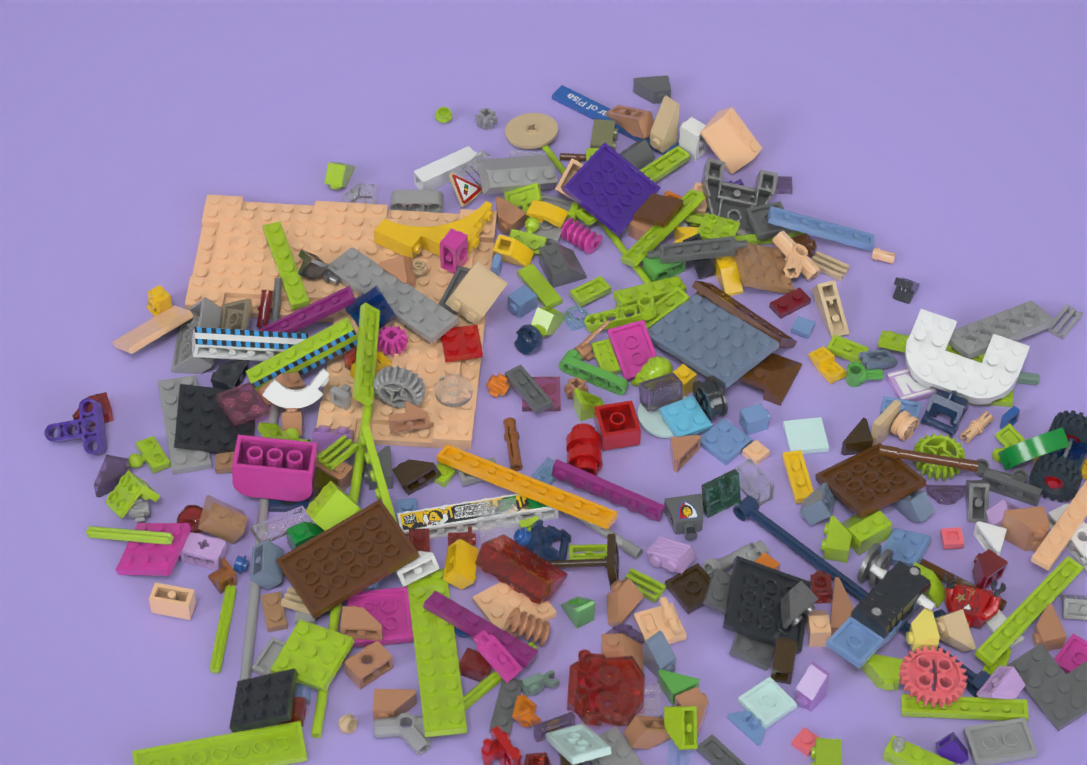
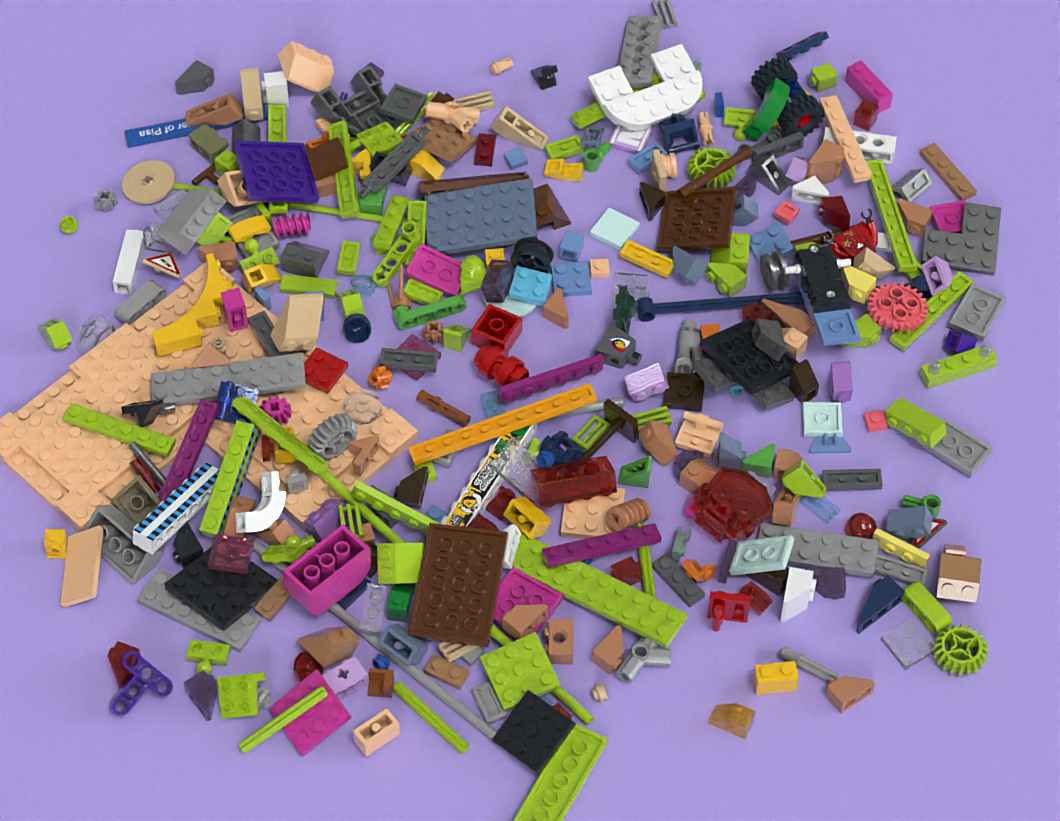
camera: 50 degrees left, 5 degrees up
(497, 655) = (639, 550): dark pink hinge -> none
(821, 228) = (445, 80): medium blue plate -> none

